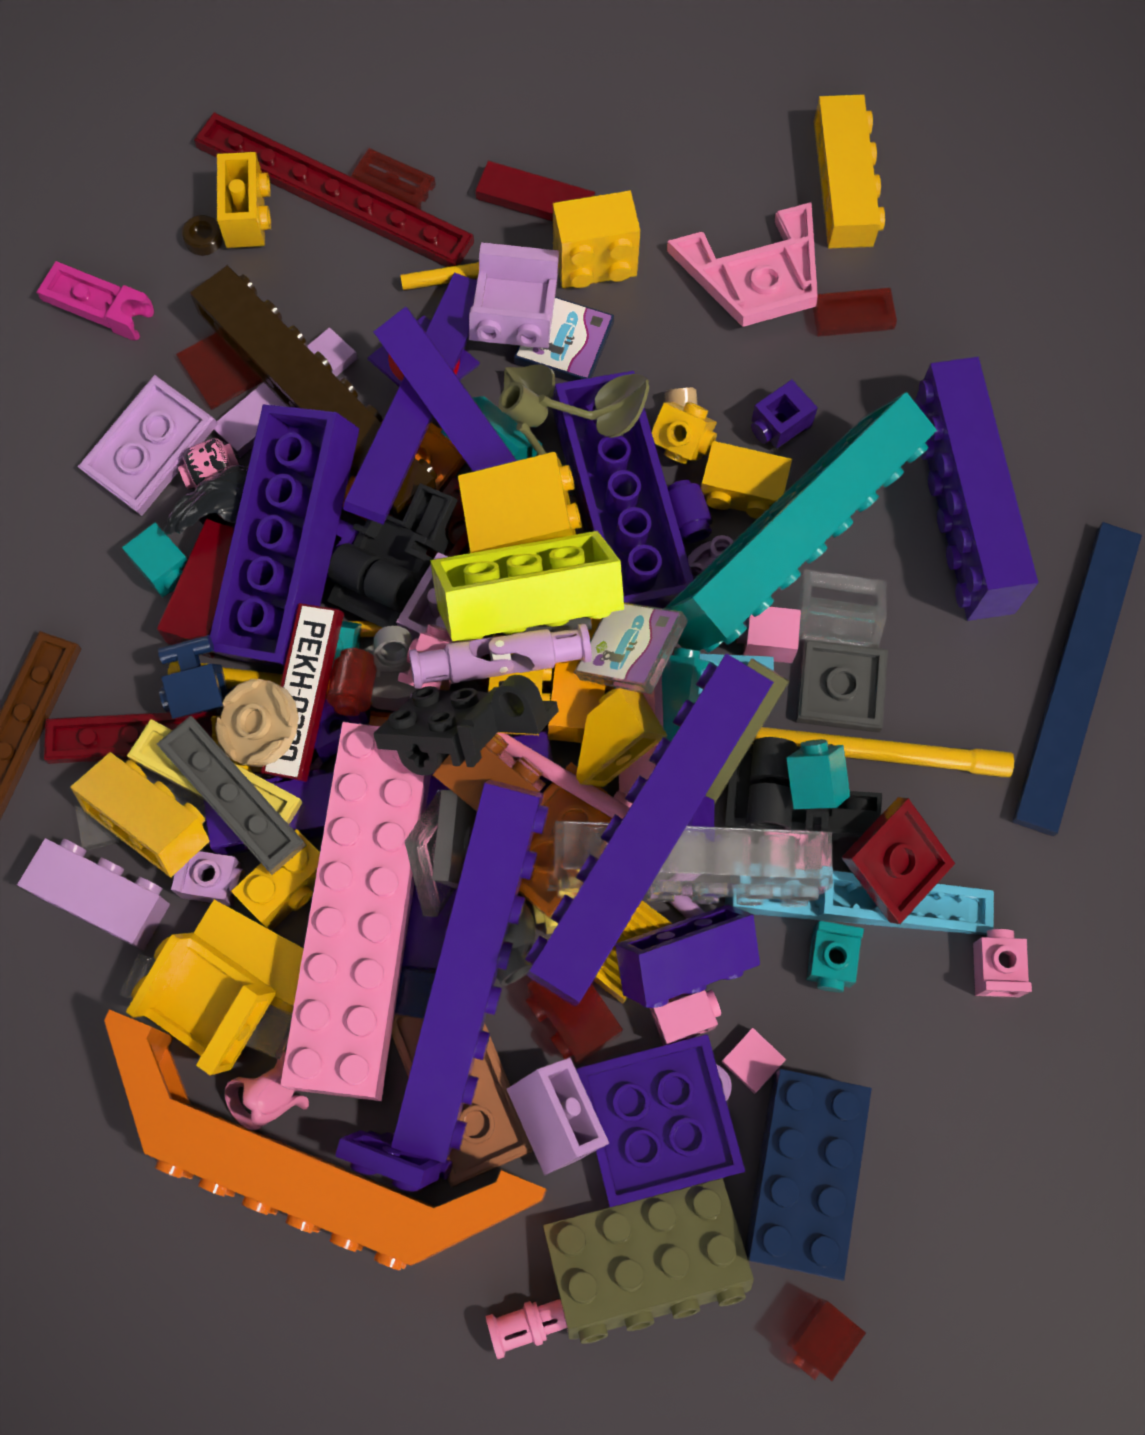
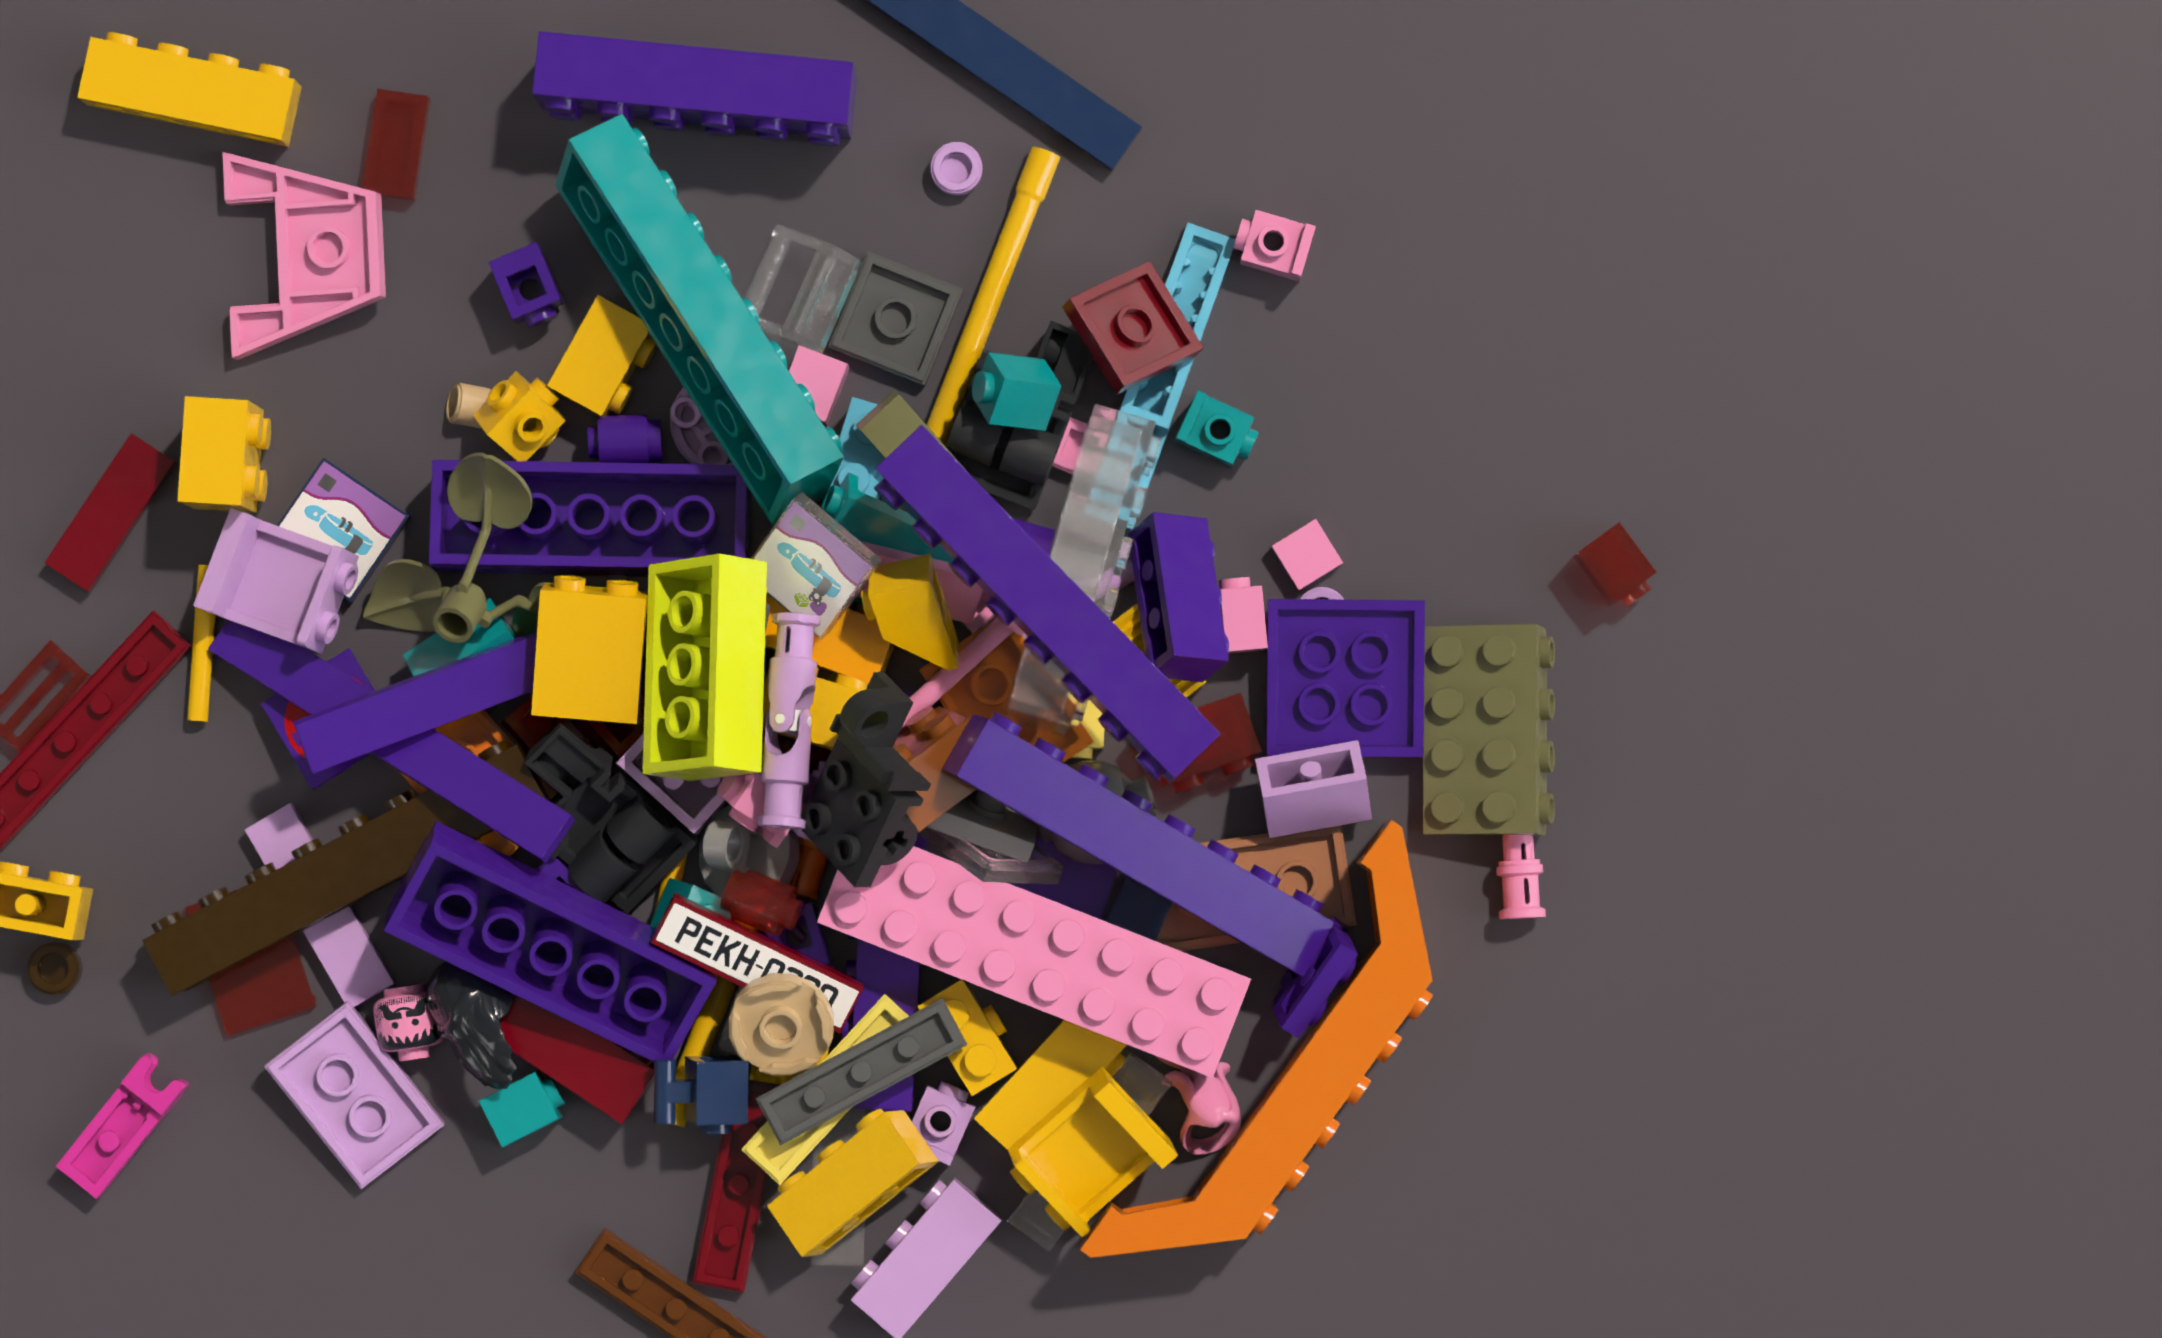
camera: 75 degrees left, 15 degrees up
(808, 1174) = (1444, 533): dark blue brick -> none
(973, 701) = (956, 168): none -> lavender tile

